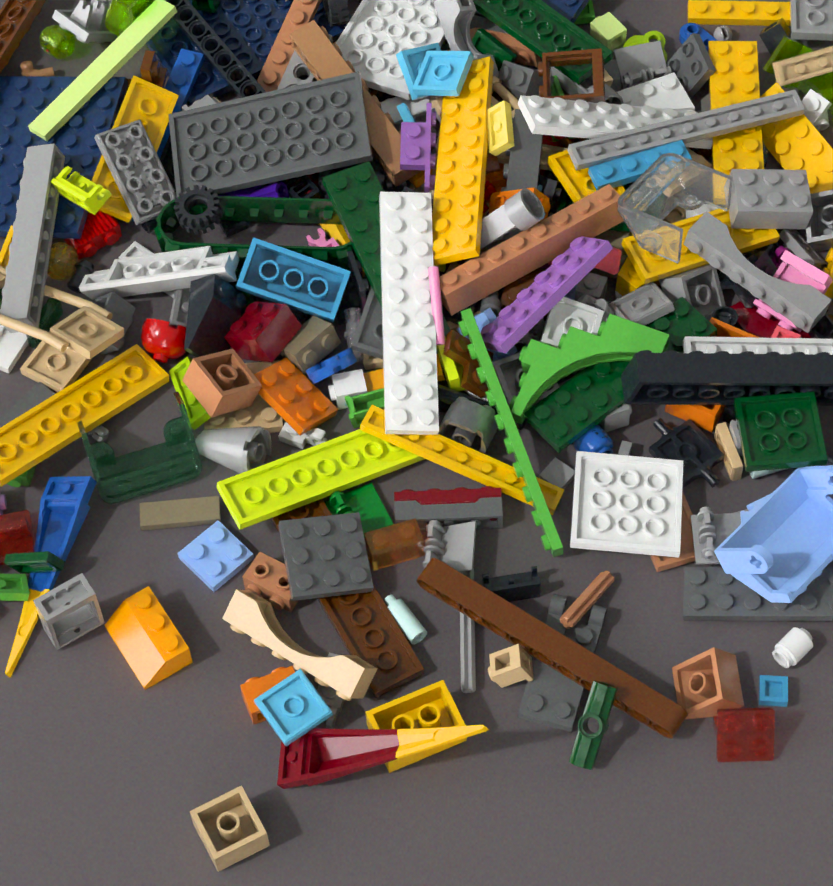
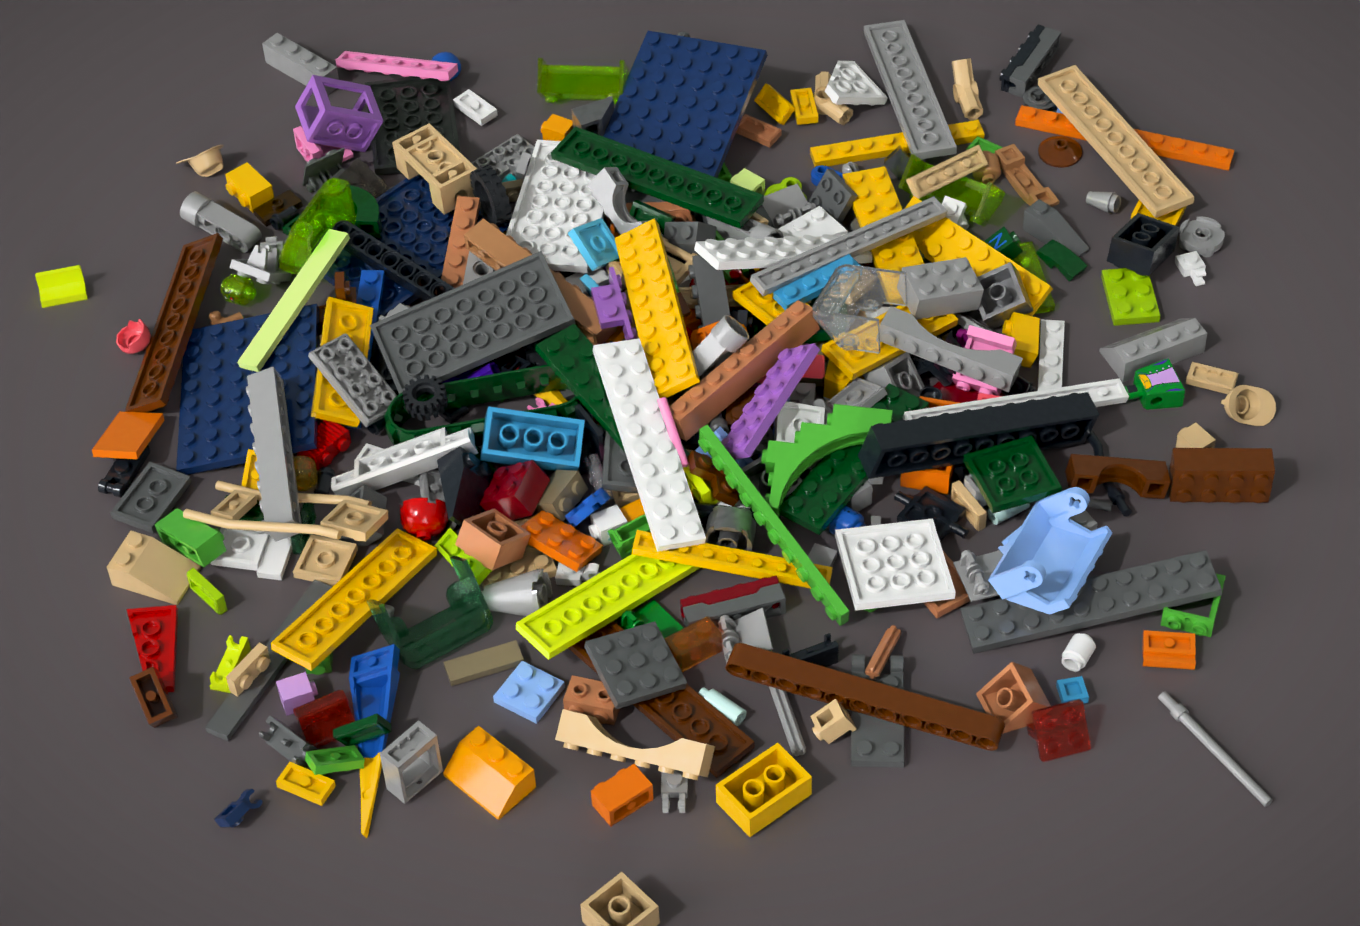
camera: 15 degrees left, 10 degrees down
(81, 190) = (309, 404): neon yellow hinge -> none
(293, 707) = (647, 797): medium azure plate -> none
(339, 752) = (689, 830): dark red plate -> none
(443, 73) = (616, 240): medium azure plate -> none
(500, 128) = (683, 274): light yellow plate -> none
(575, 57) = (732, 204): reddish brown window -> none
(587, 742) = (924, 733): dark green piece -> none

